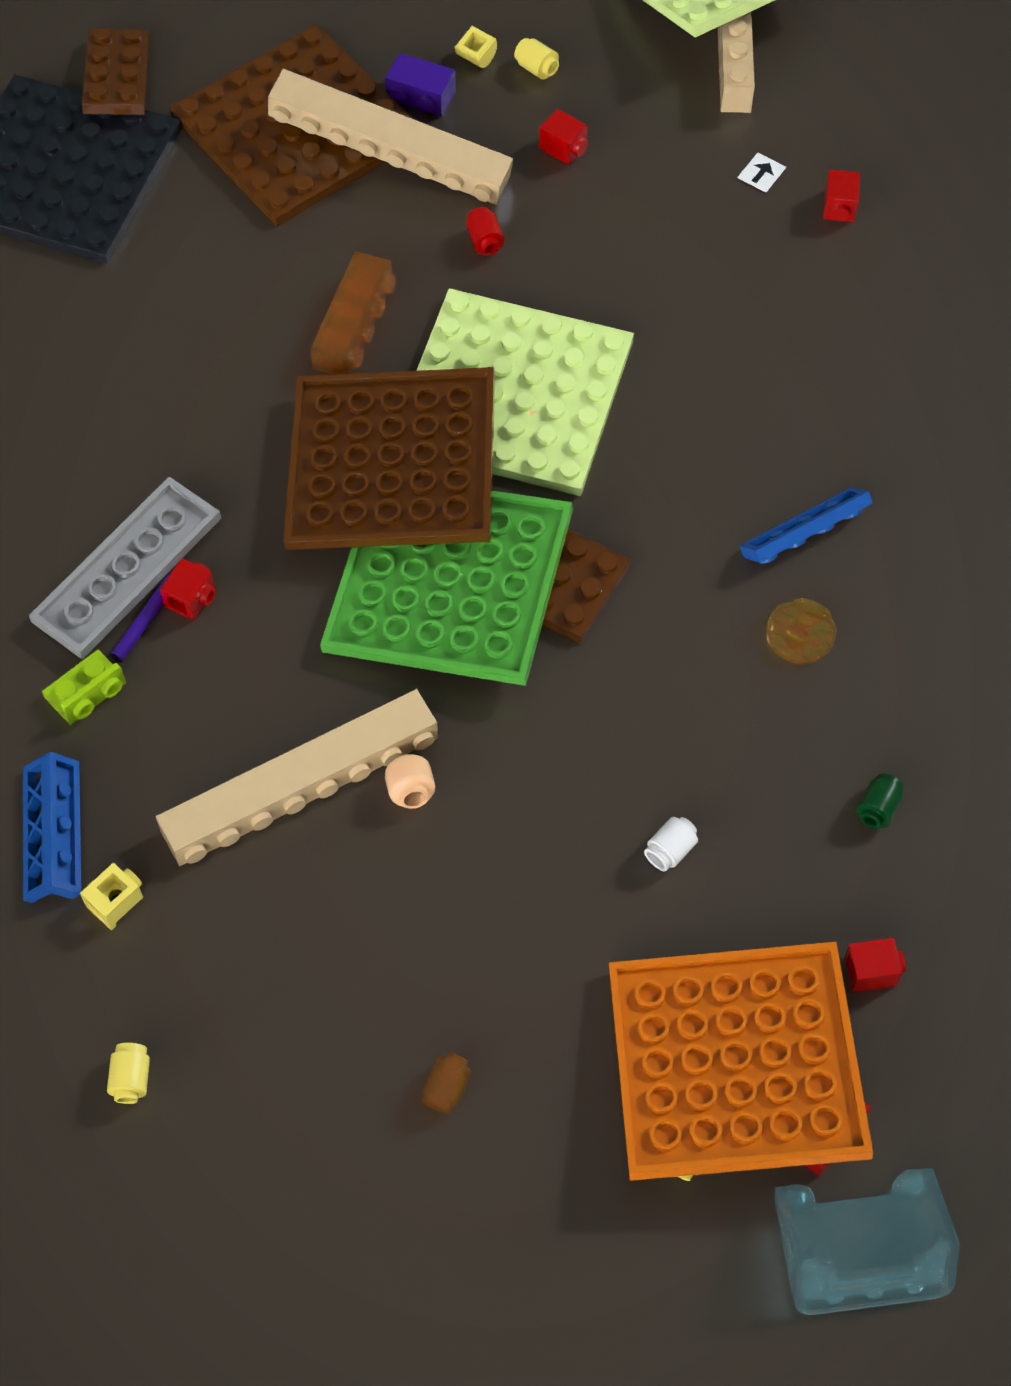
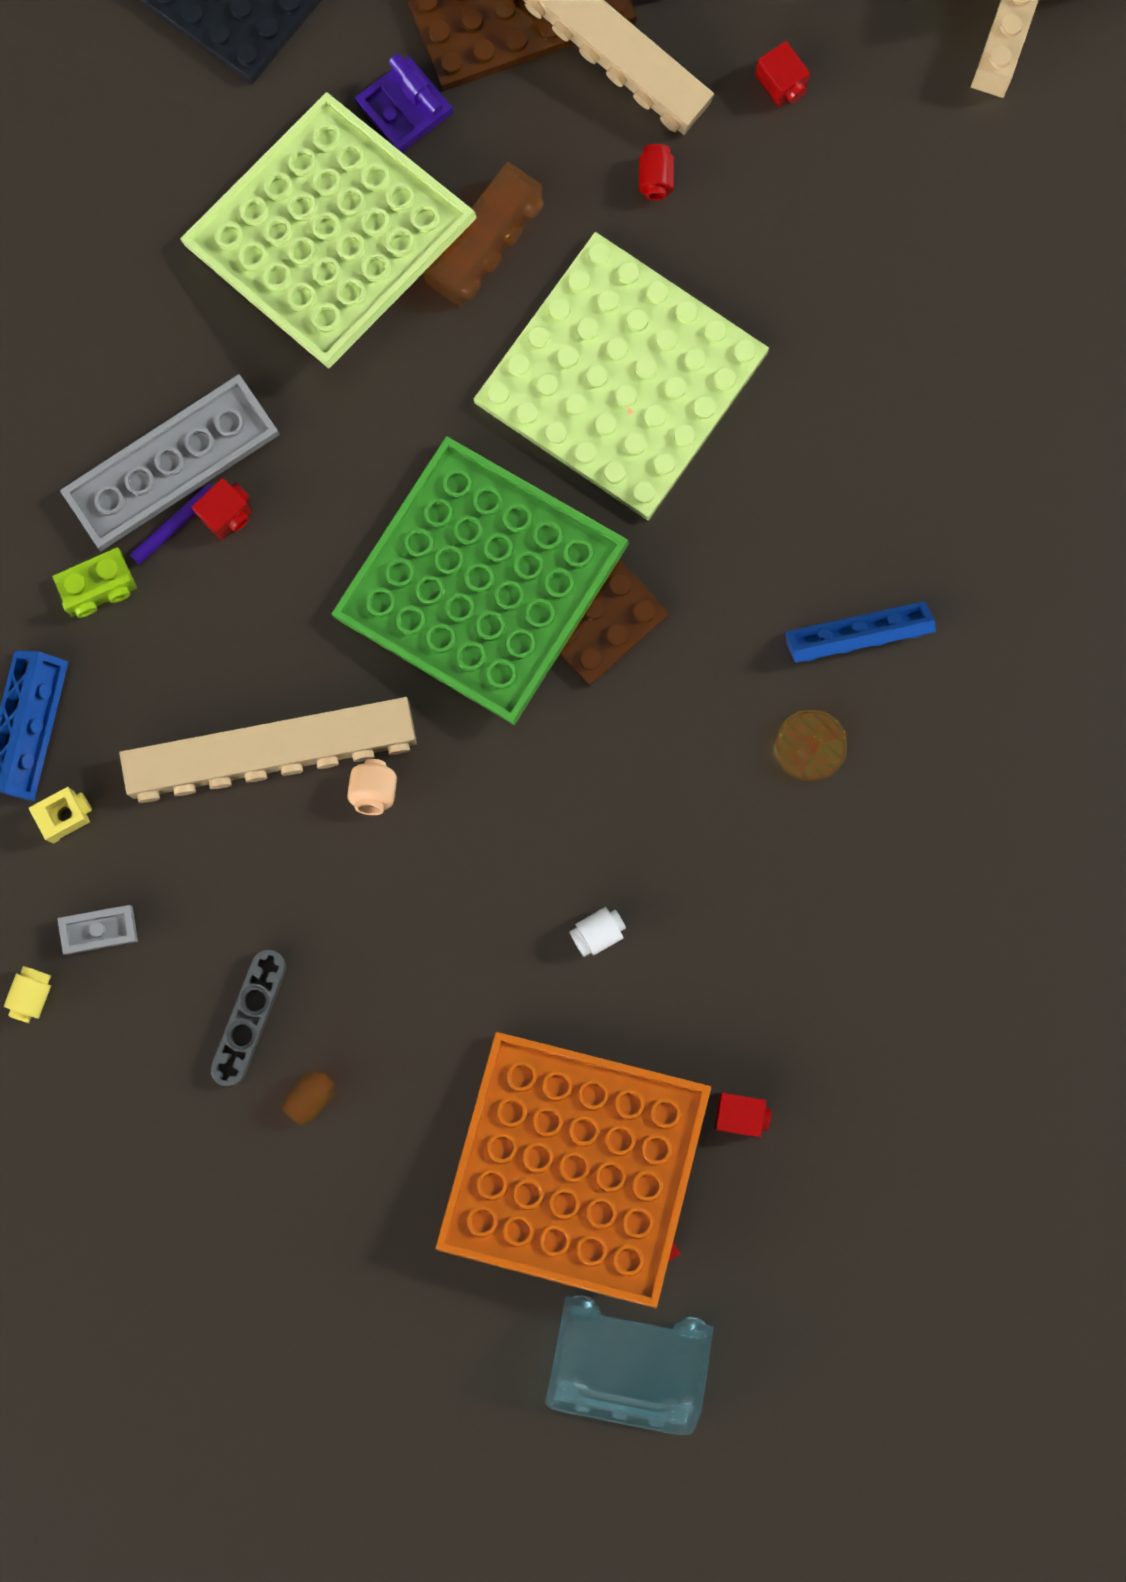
camera: 20 degrees right, 20 degrees up
(181, 991) = (97, 929): none -> light grey plate
(213, 343) = (328, 229): none -> yellowish green plate
(248, 238) = (403, 104): none -> dark purple plate
(359, 1029) = (254, 1020): none -> dark grey beam
(391, 459) = (465, 427): reddish brown plate -> none
(761, 172) = (984, 181): white sticker -> none
(841, 195) = (1055, 245): red brick -> none
(880, 801) = (814, 953): dark green brick -> none

